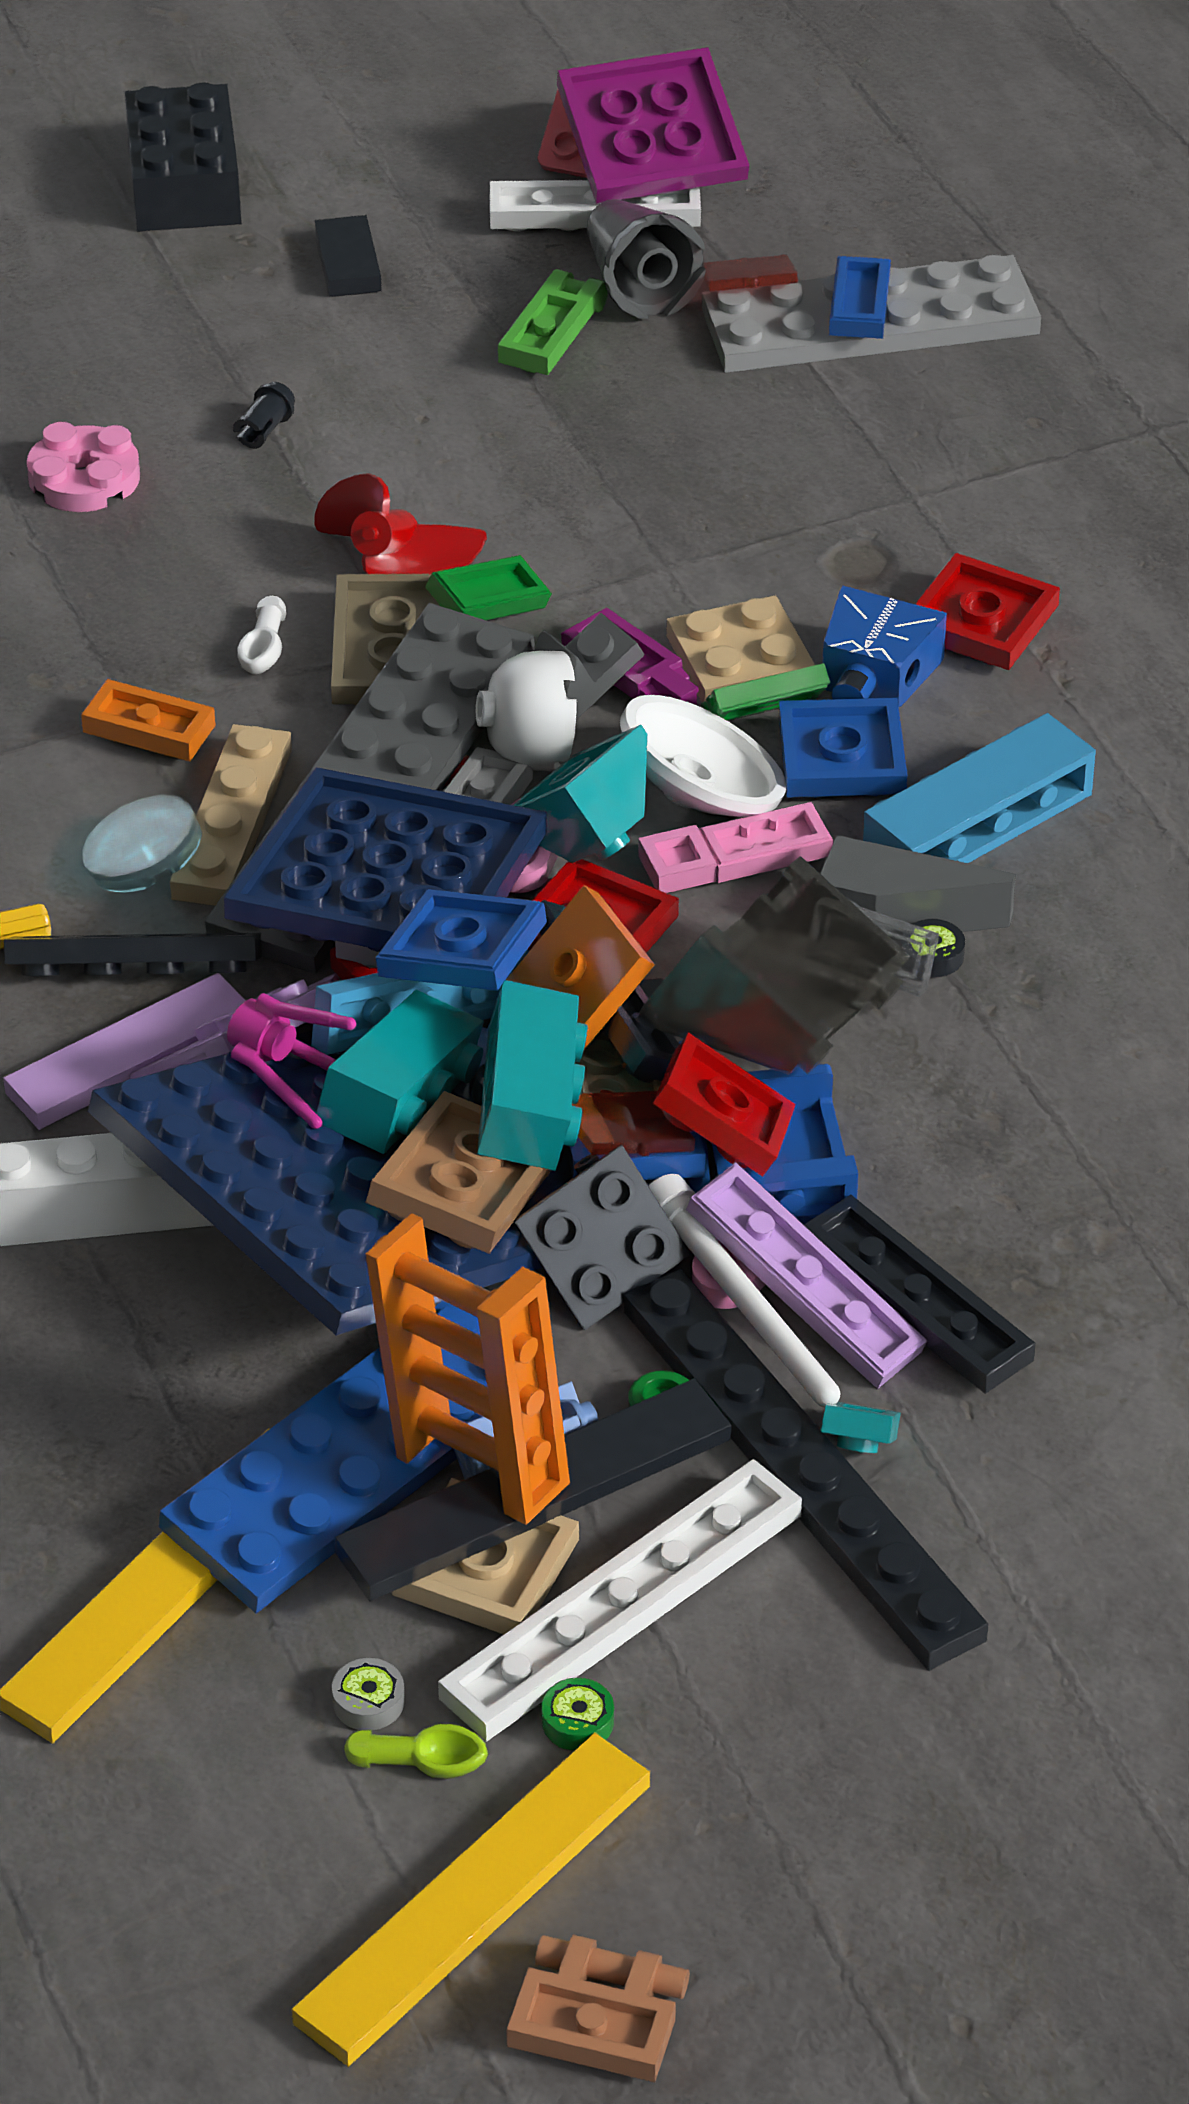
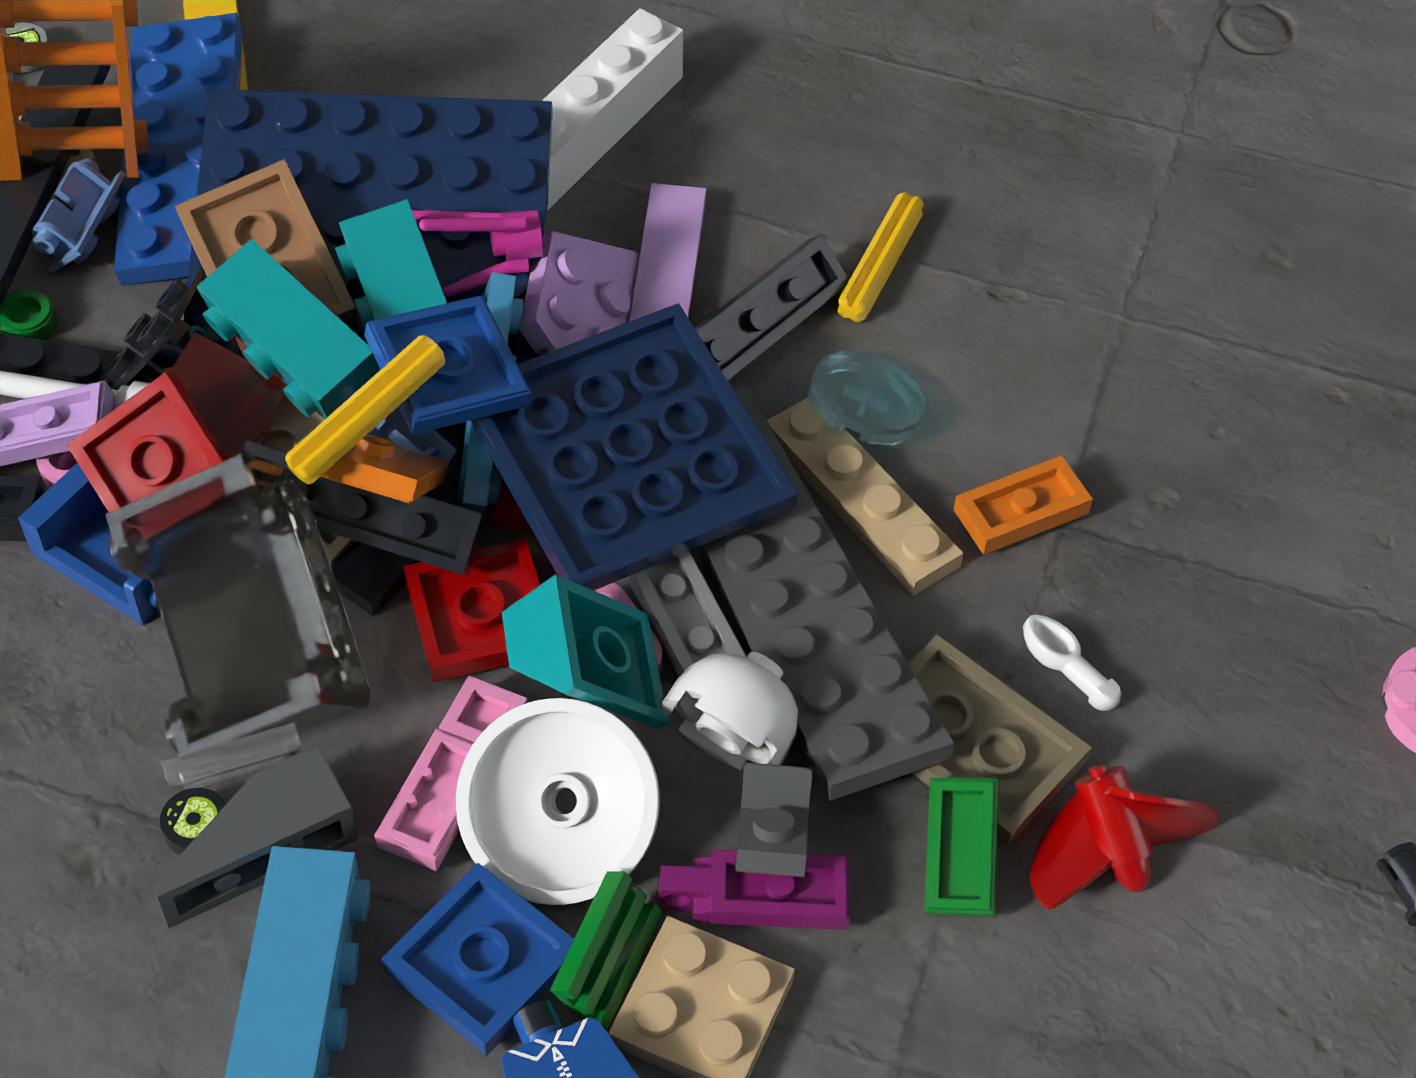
camera: 130 degrees right, 10 degrees up
(573, 914) = (365, 409): none -> yellow axle

